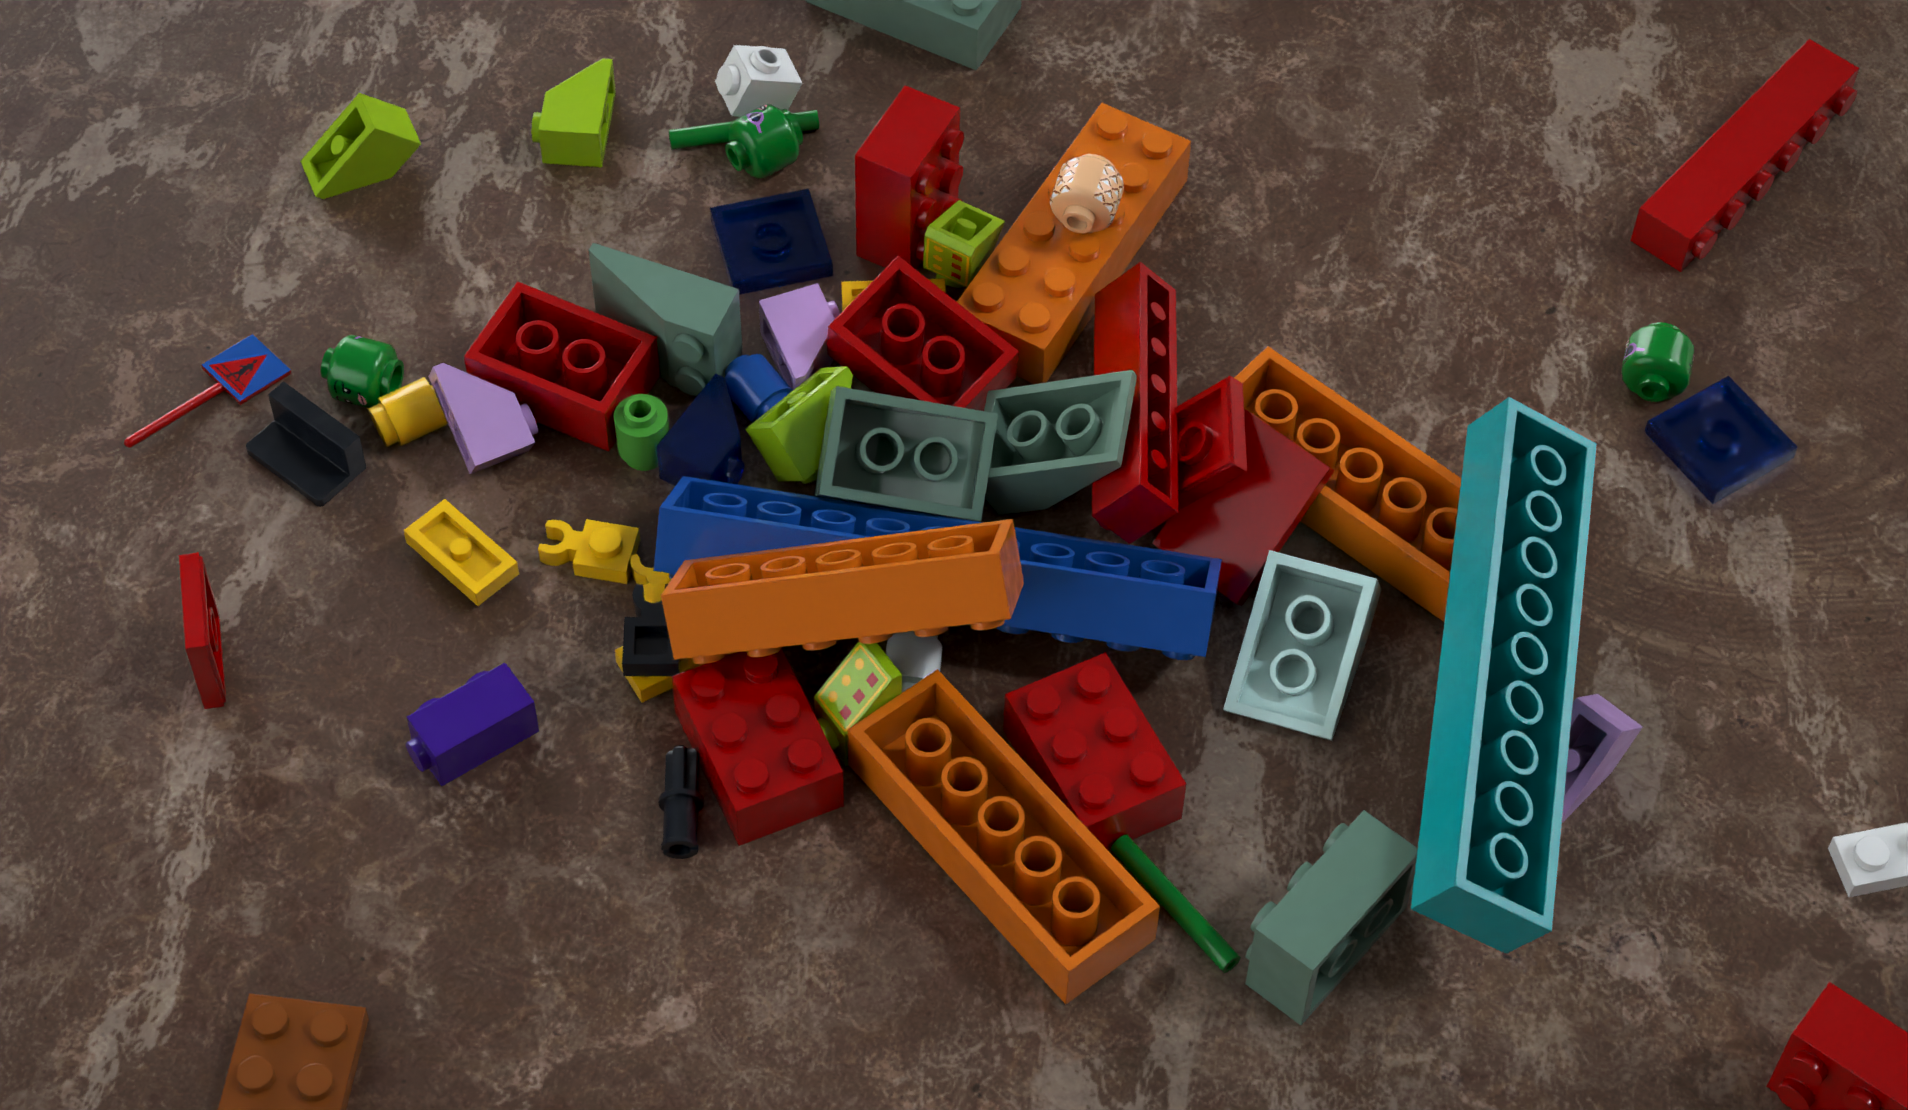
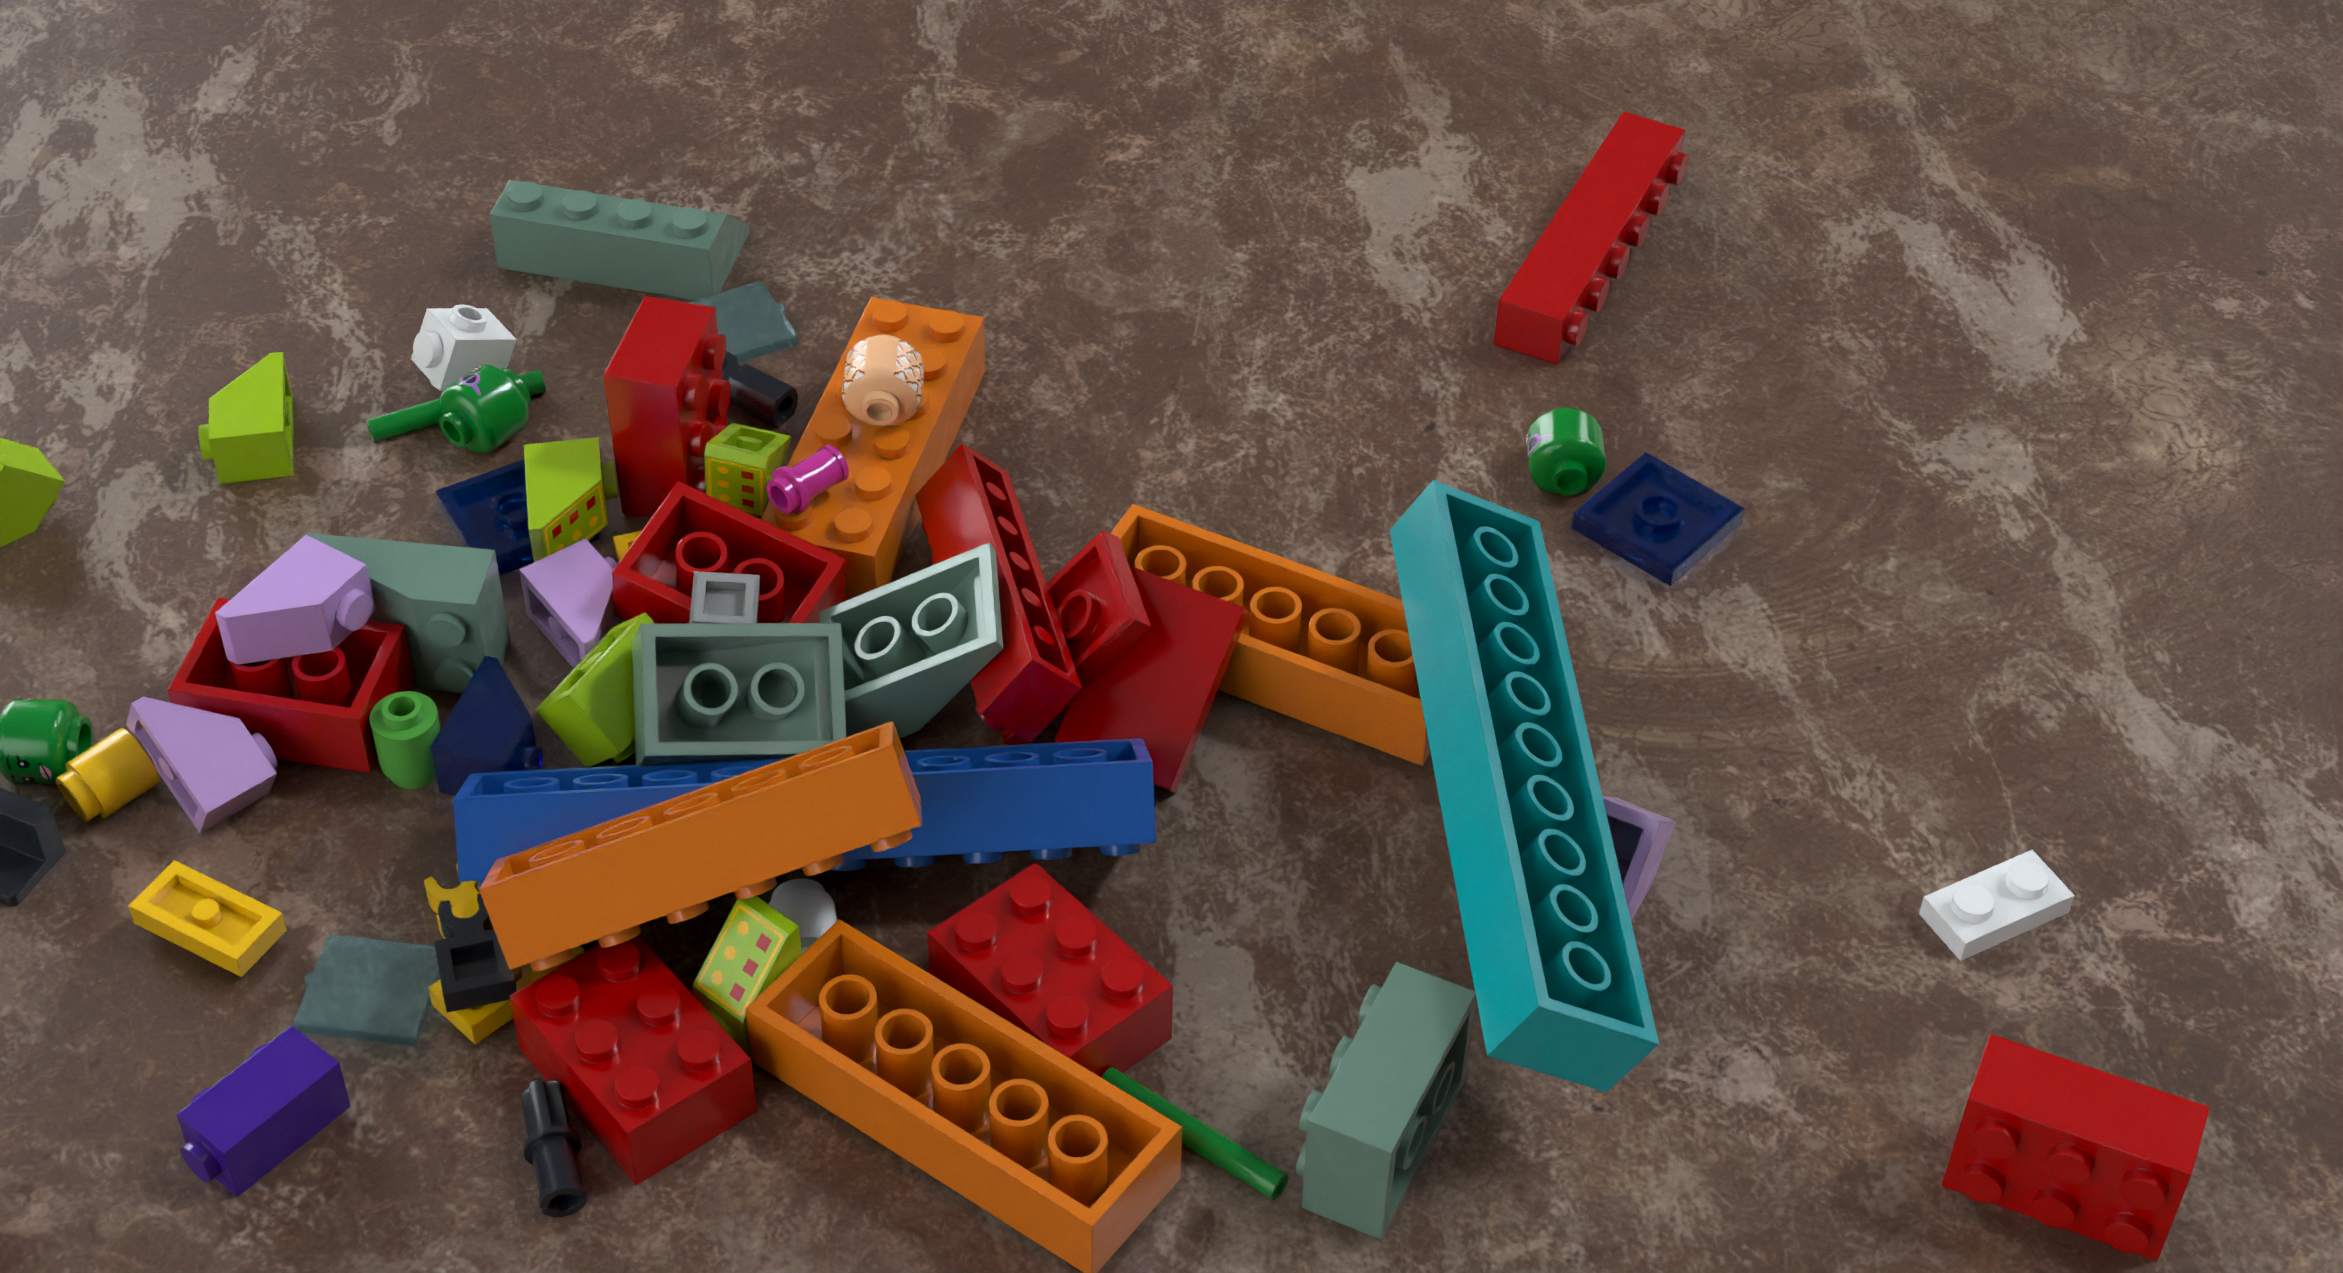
camera: 15 degrees left, 10 degrees down
(571, 638) = (369, 990): none -> clear light blue piece
(576, 306) = (297, 605): none -> lavender slope
(597, 552) = (378, 887): yellow plate -> none
(754, 385) = (534, 663): blue brick -> none
(810, 239) = (566, 493): none -> lime slope
(911, 372) = (724, 598): none -> light grey tile
(988, 95) = (751, 321): none -> clear light blue piece
(988, 164) = (759, 392): none -> black bar
(993, 277) = (796, 486): none -> dark pink pin
(1302, 645) = (1260, 813): light aqua slope -> none

